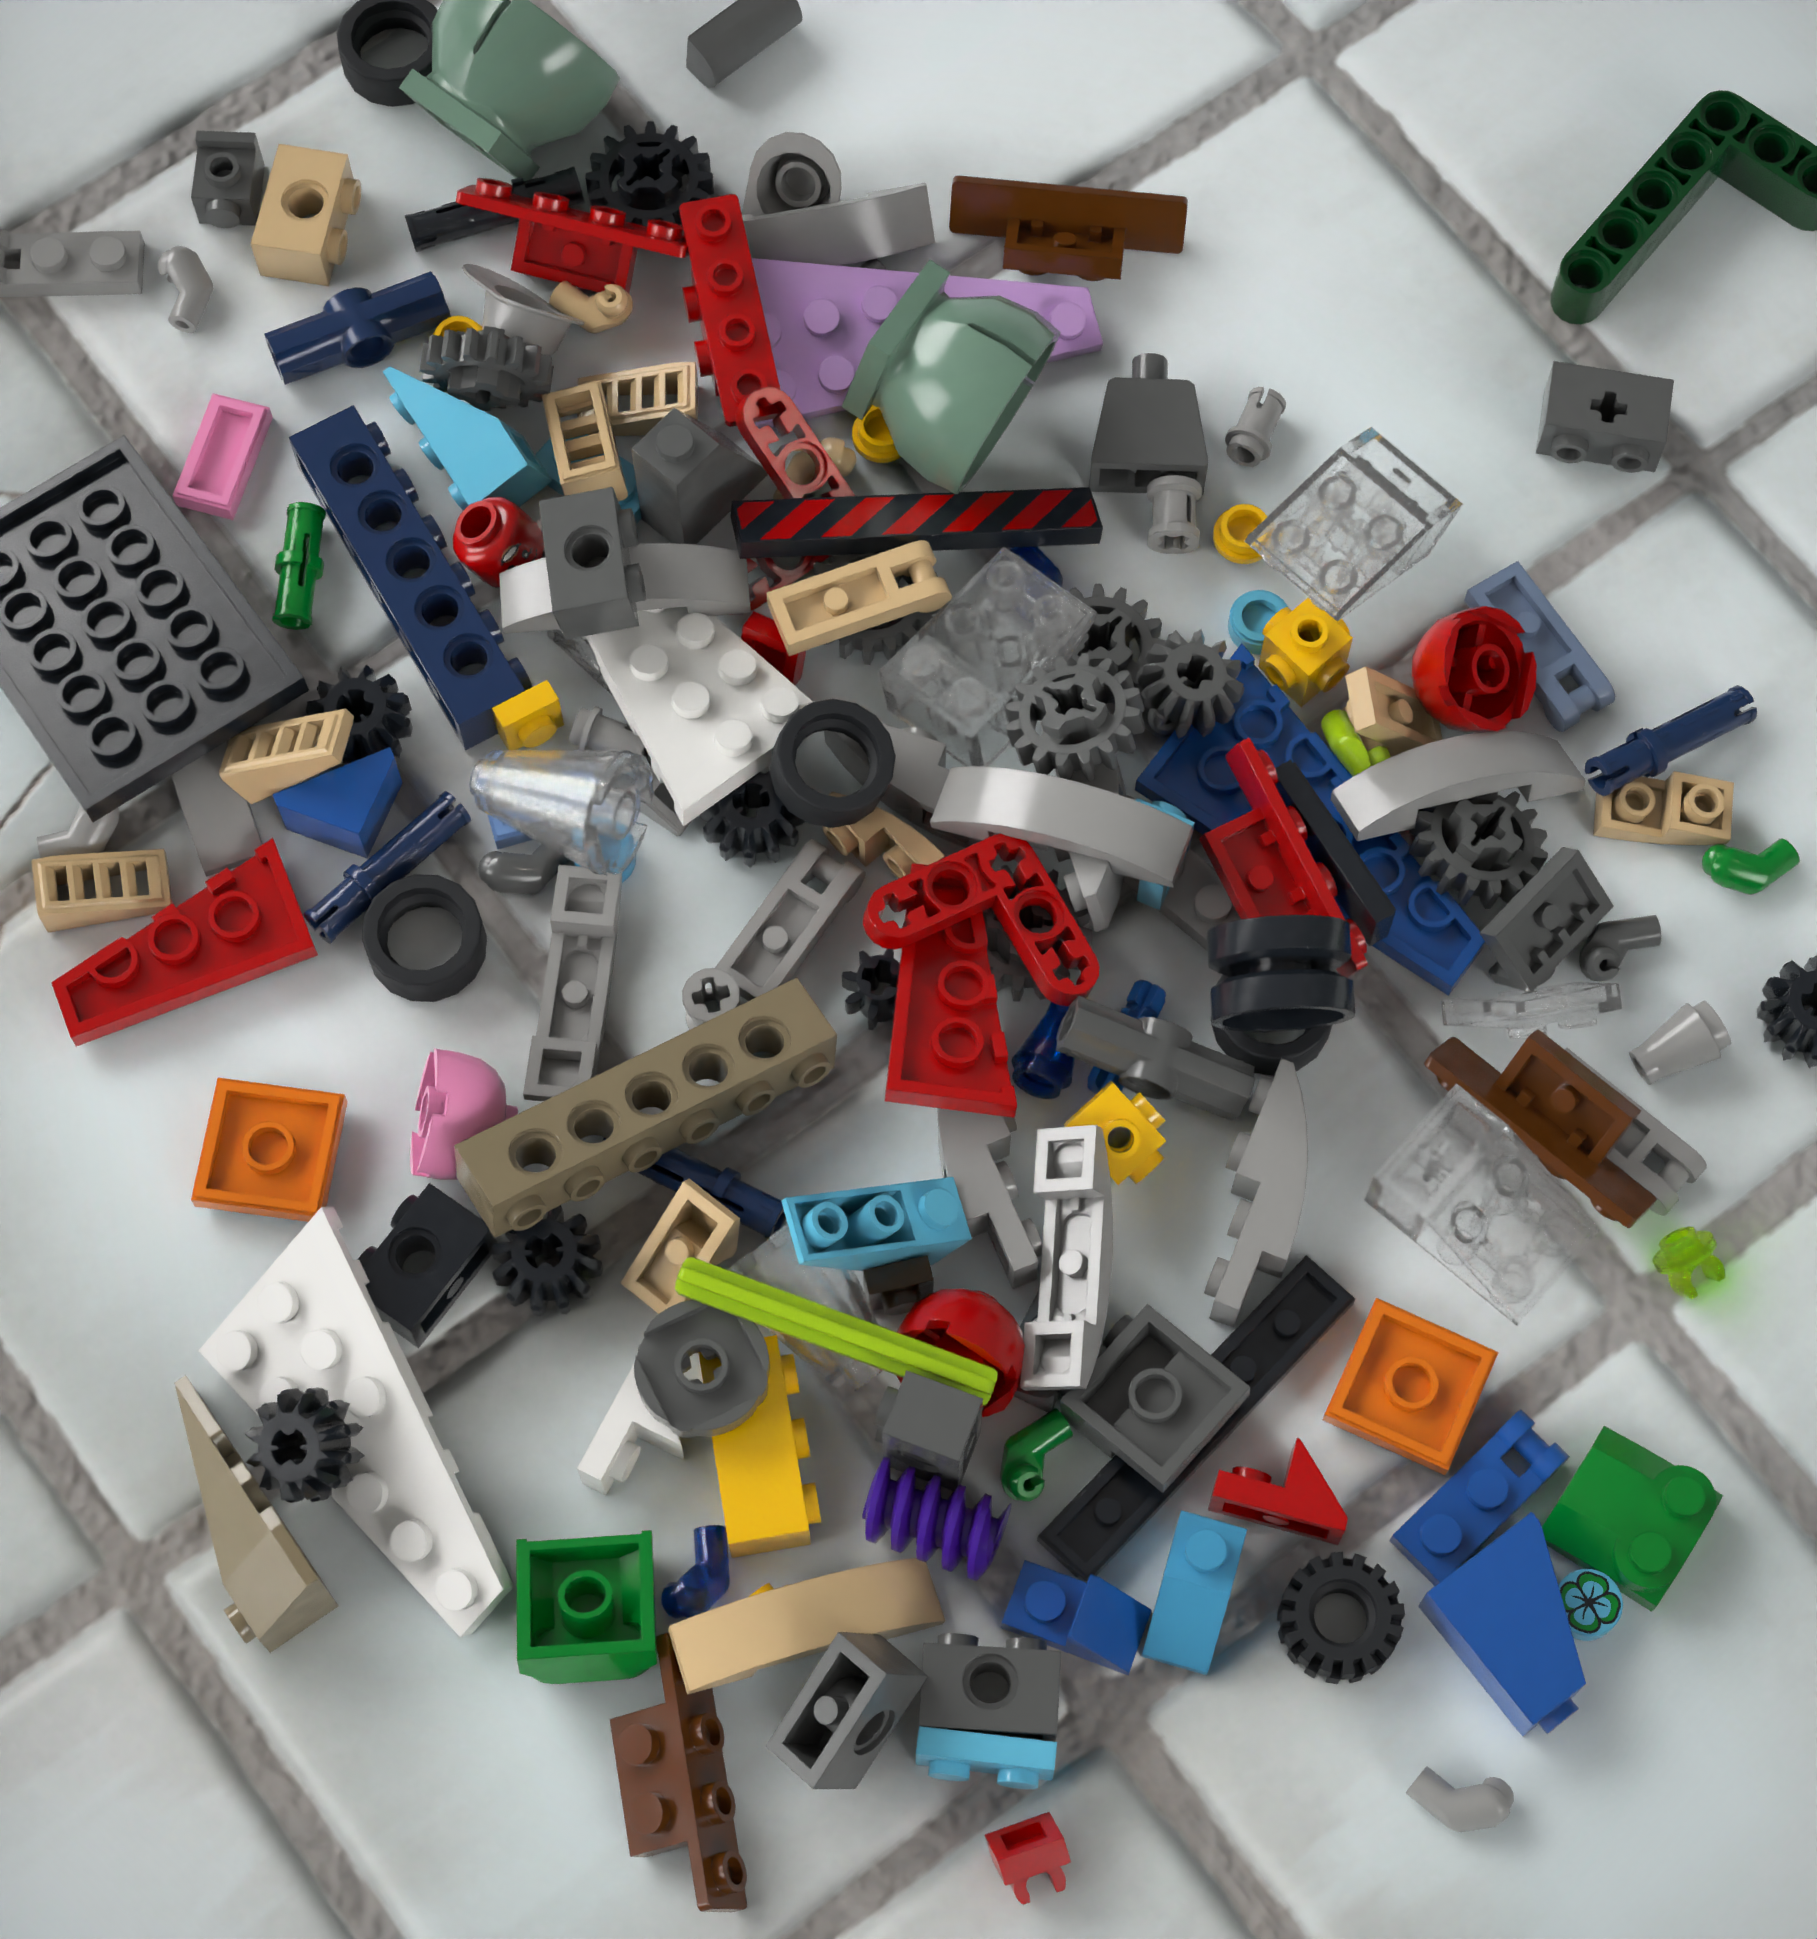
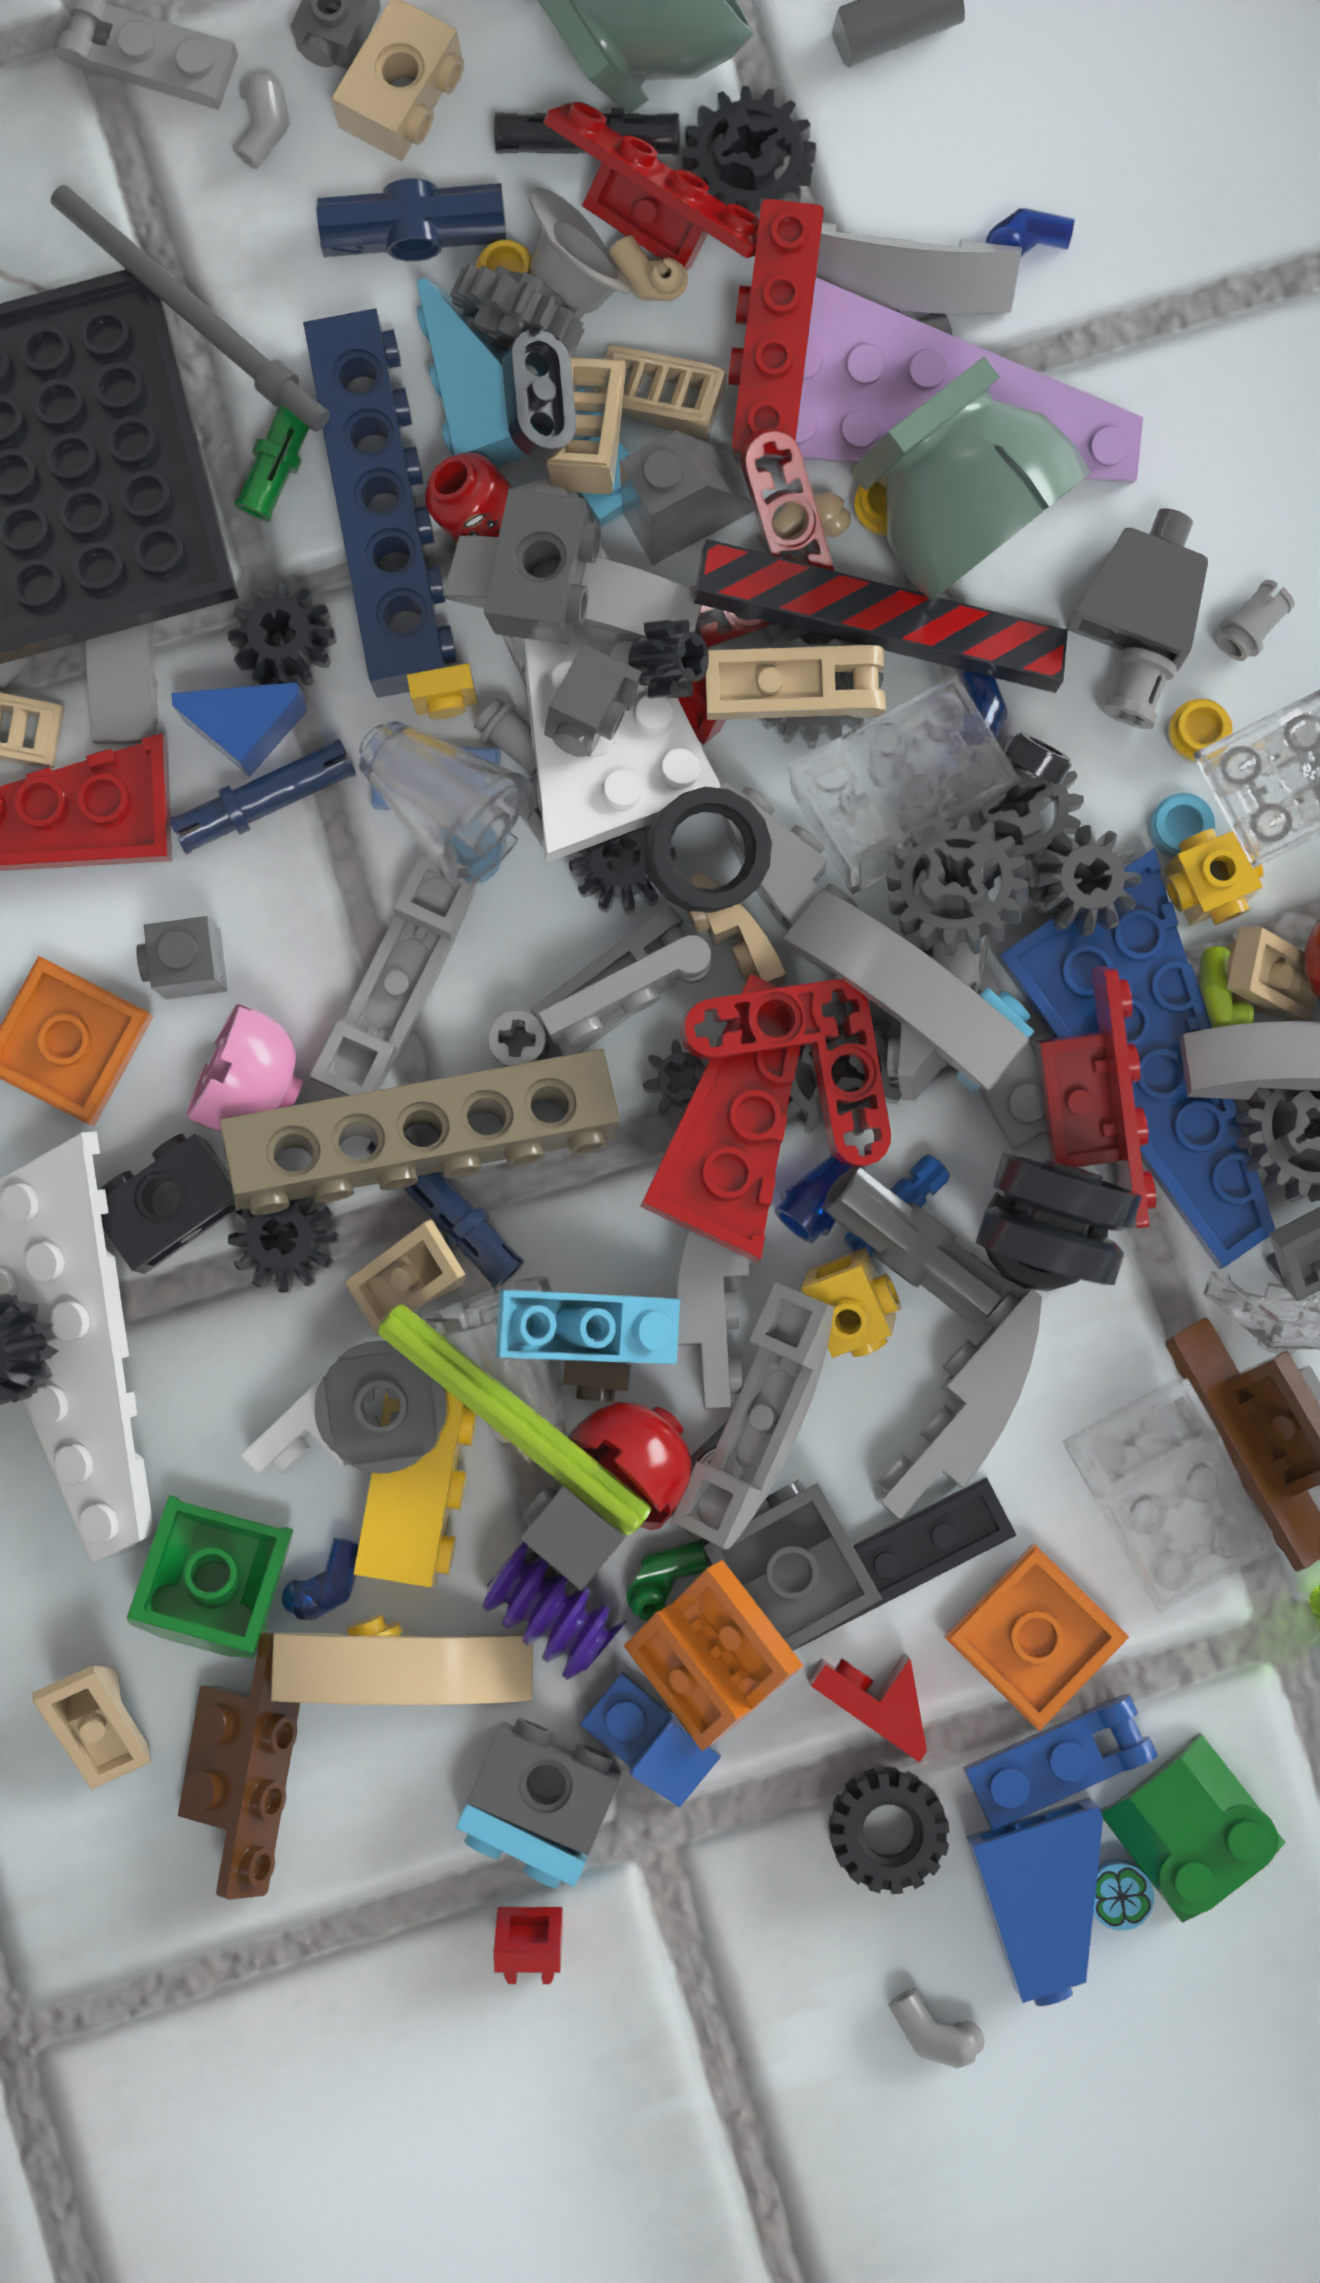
camera: 25 degrees right, 15 degrees up
(222, 456) = (249, 302): bright pink tile -> none
(276, 492) = (271, 378): none -> dark grey bar
(284, 754) = (188, 652): tan slope -> none
(361, 1033) = (182, 958): none -> dark grey brick
(411, 894) = (251, 838): black tyre -> none
(516, 1787) = (93, 1724): none -> tan slope
(520, 872) = (380, 842): dark grey arm -> none
(534, 424) = (542, 398): none -> black plate
(677, 664) = (590, 701): none -> dark grey brick
(735, 609) = (669, 658): none -> black gear
(791, 174) = (888, 200): light grey piece -> none
(800, 914) = (627, 989): none -> light grey plate
(846, 1711) = (406, 1768): dark grey brick -> none
(930, 167) = (1032, 227): none -> clear blue arm
(1065, 225) = (1146, 342): reddish brown bracket -> none
(1107, 591) = (1039, 757): none -> black tile
(1107, 1498) = (712, 1655): none -> orange slope
(1194, 1592) = (764, 1760): dark azure slope -> none
(1356, 886) = (1159, 1102): black tile -> none

